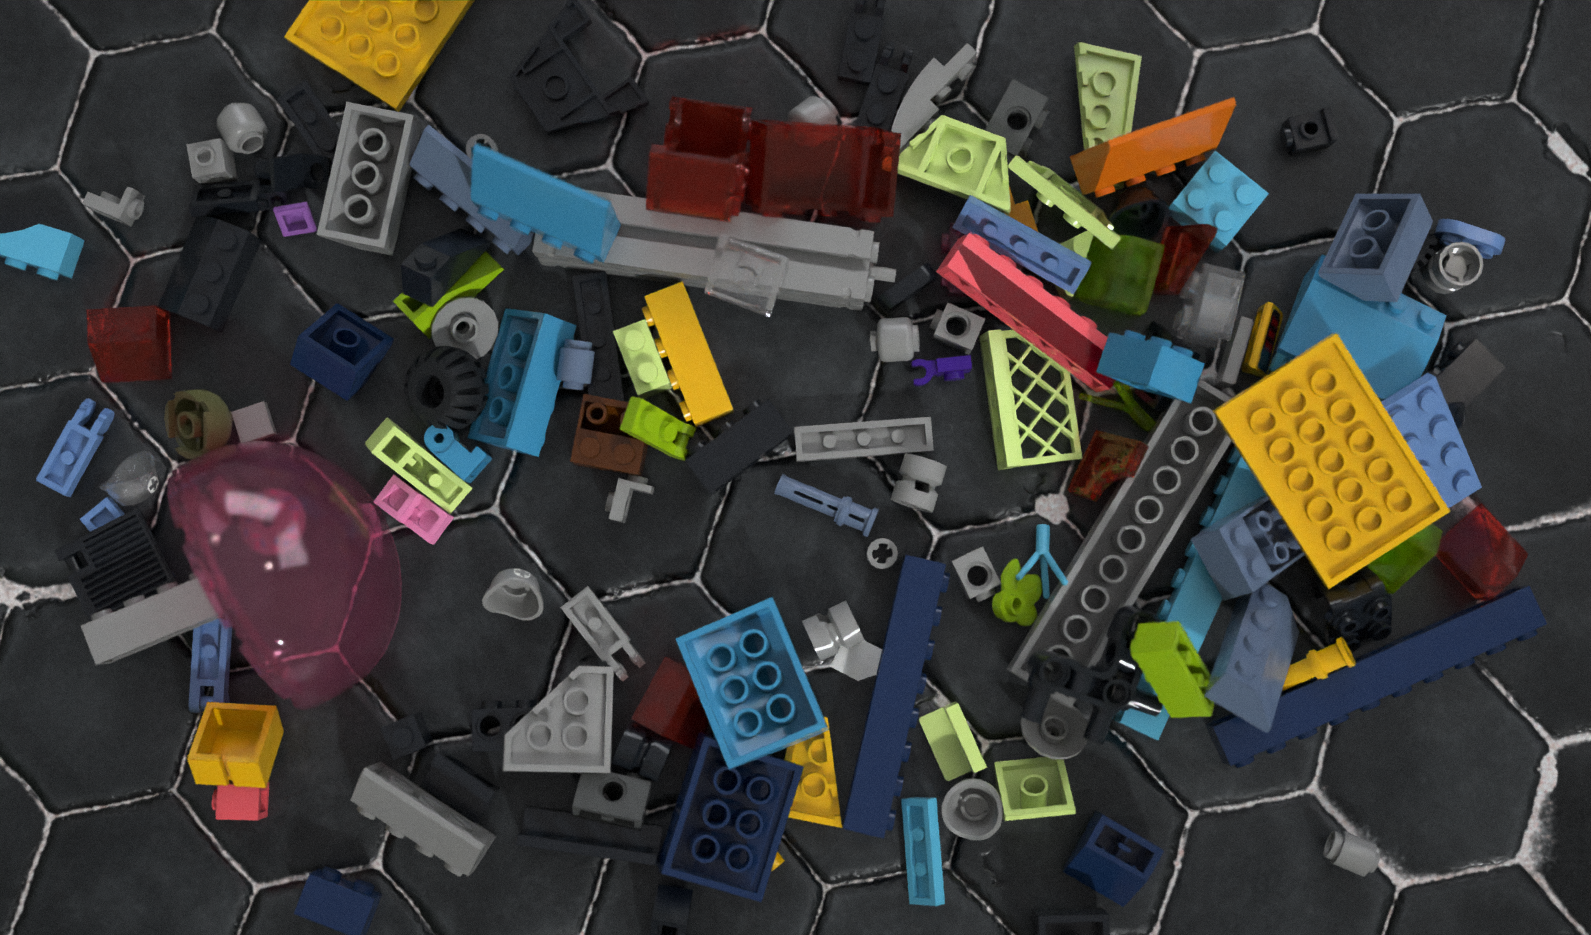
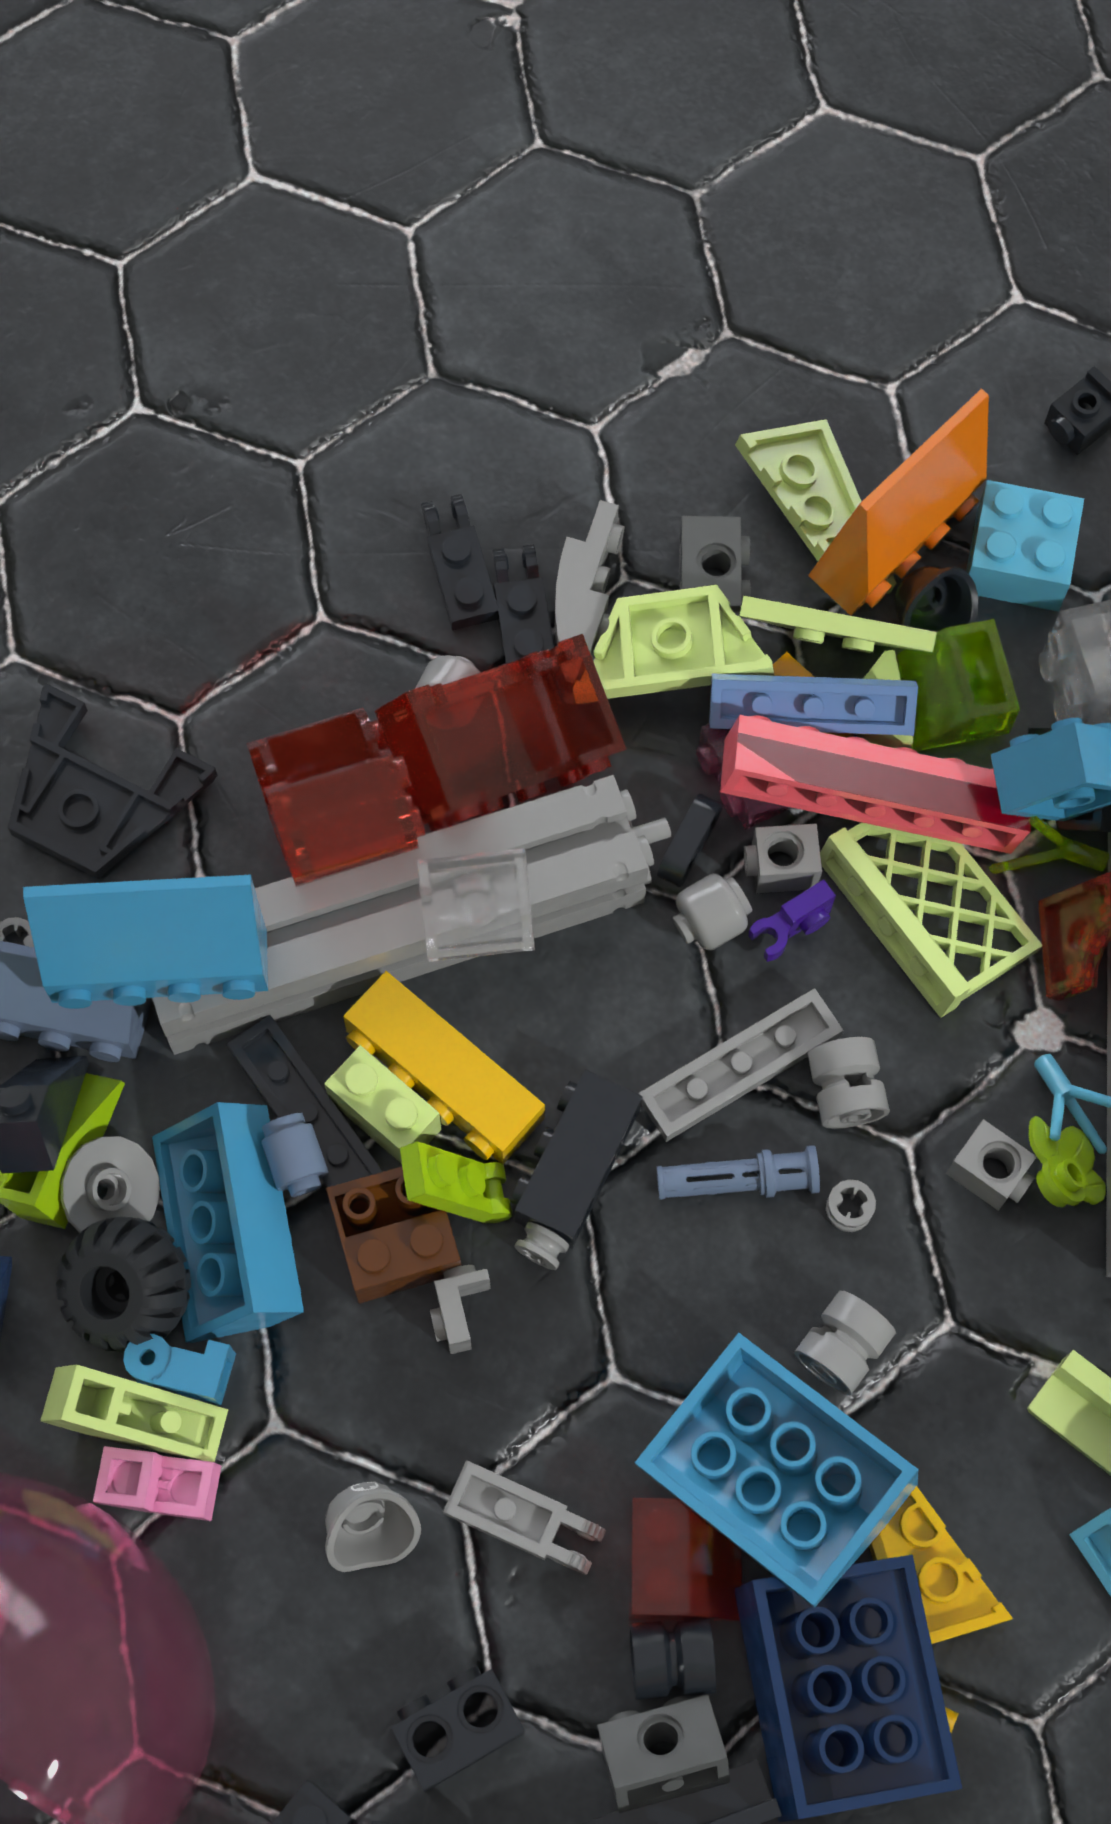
camera: 30 degrees left, 15 degrees down
(567, 728) = (546, 1678): light grey plate -> none
(692, 486) = (541, 1246): none -> light grey bush
(858, 661) = (908, 1368): white sticker -> none
(894, 696) = (980, 1395): dark blue brick -> none
(1181, 255) = (1022, 623): clear red wing -> none

